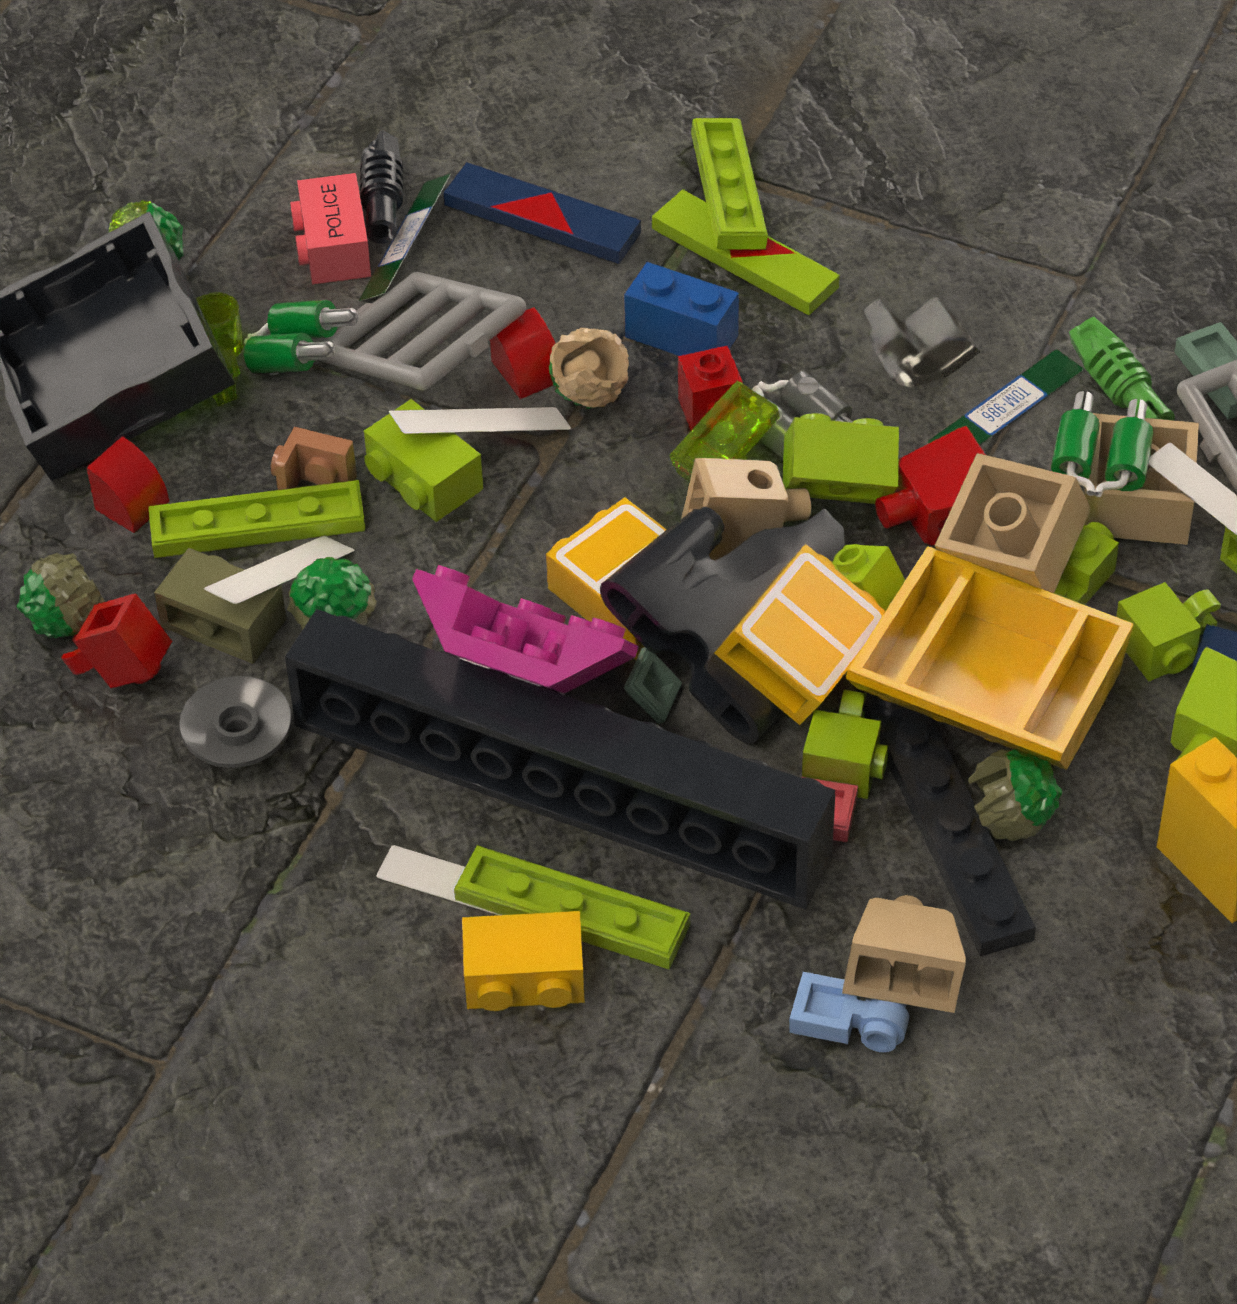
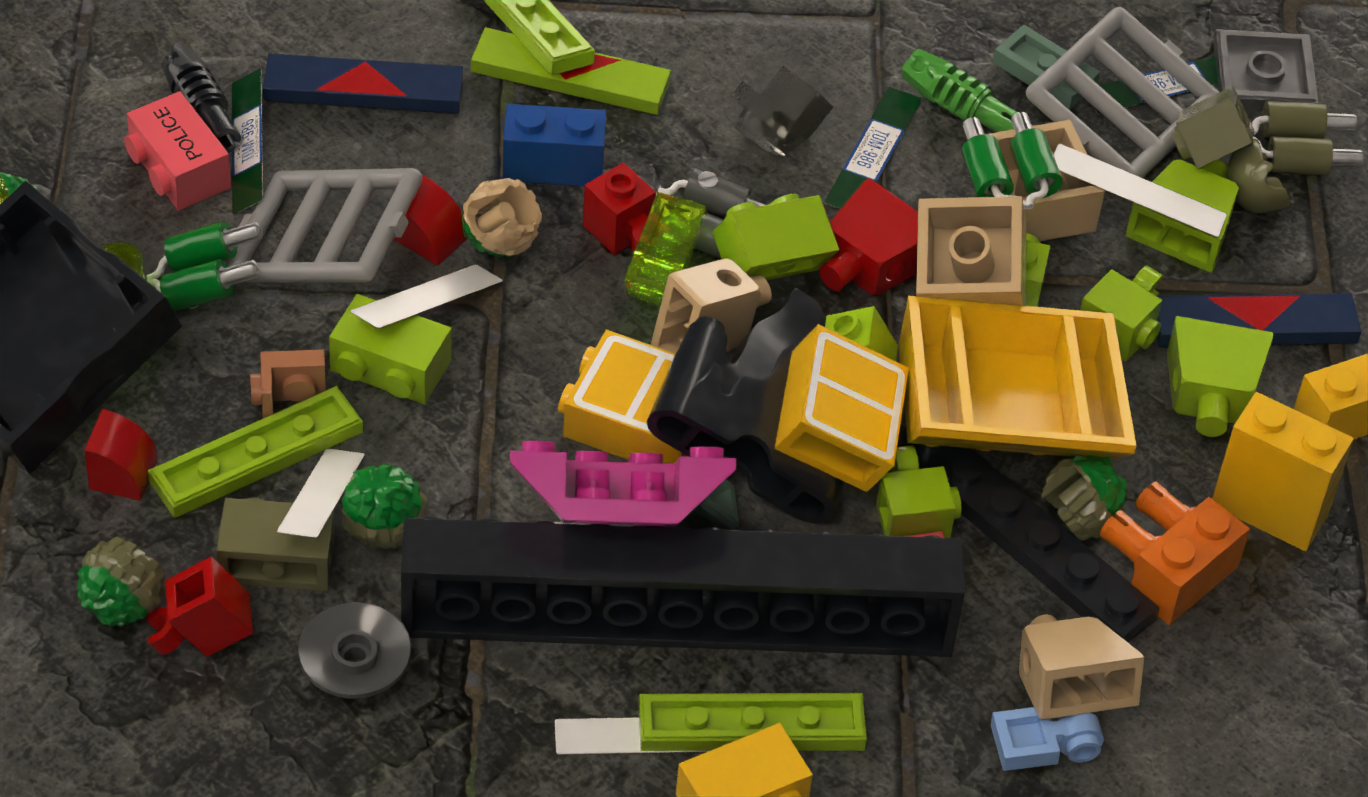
camera: 30 degrees left, 0 degrees up
(1086, 888) = (1188, 559): none -> orange brick

